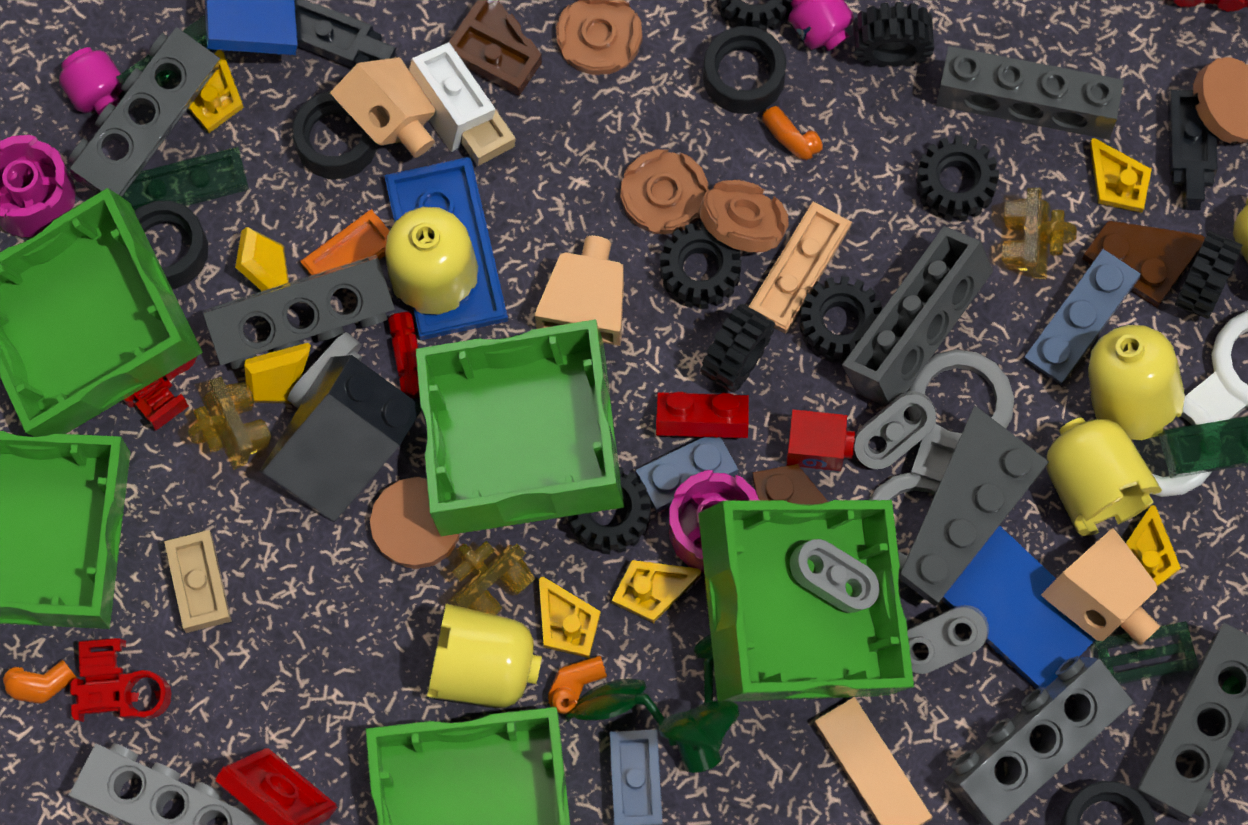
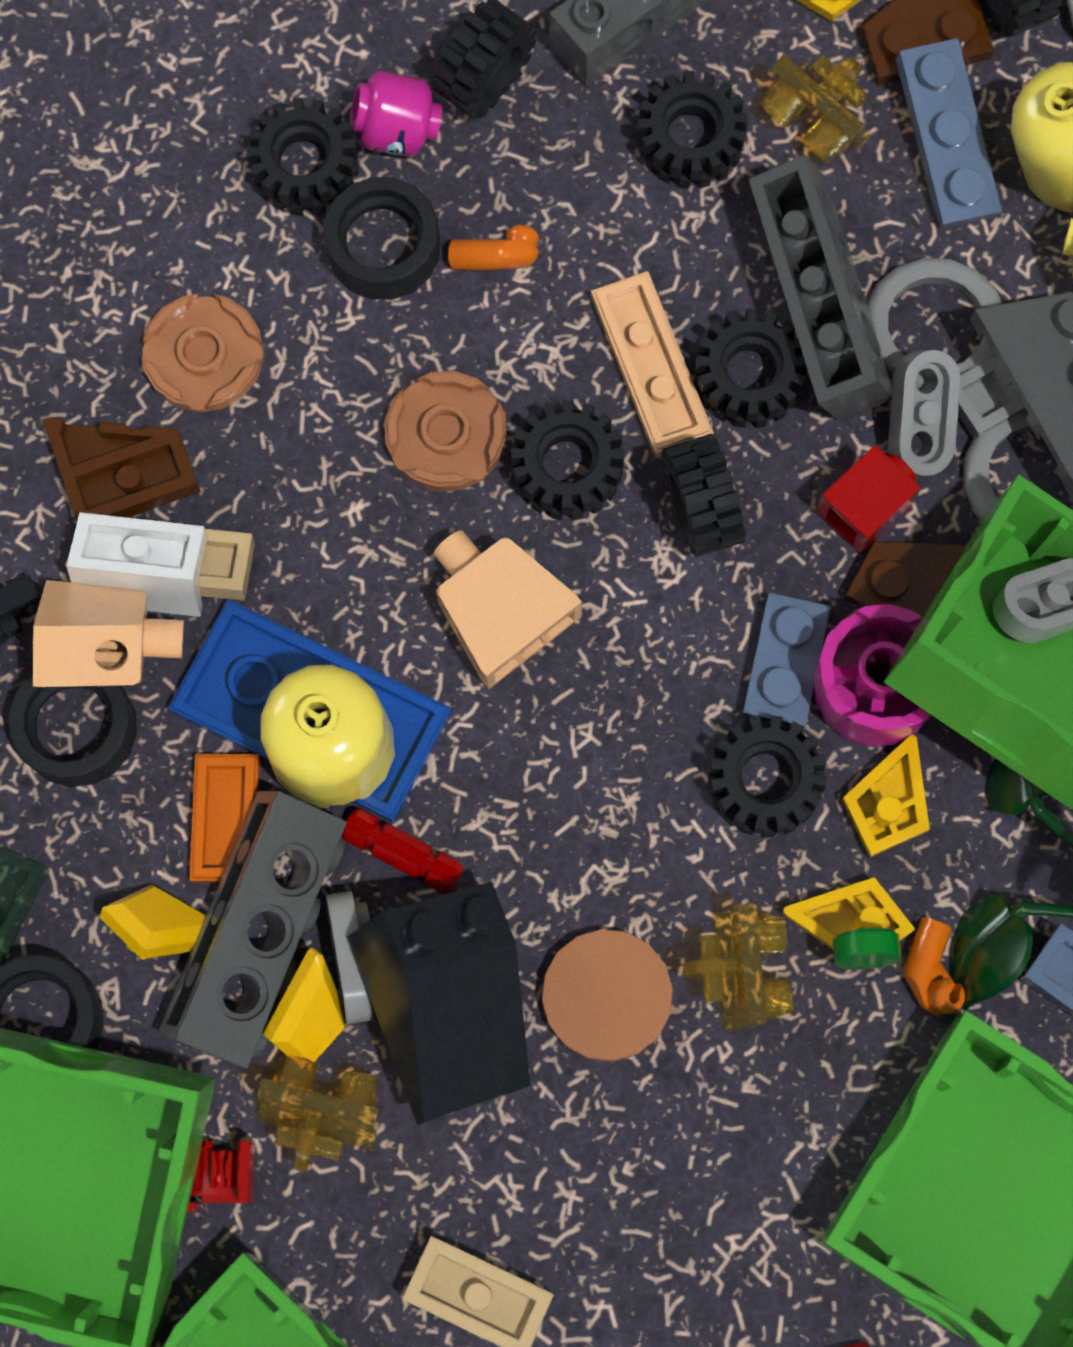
camera: 50 degrees left, 5 degrees up
(482, 659) = (838, 1050): light yellow cylinder -> none
(518, 428) = (606, 796): bright green tile -> none
(551, 632) = (867, 948): none -> green tile
(702, 415) = (739, 593): red plate -> none
(743, 216) = (553, 371): nougat tile -> none

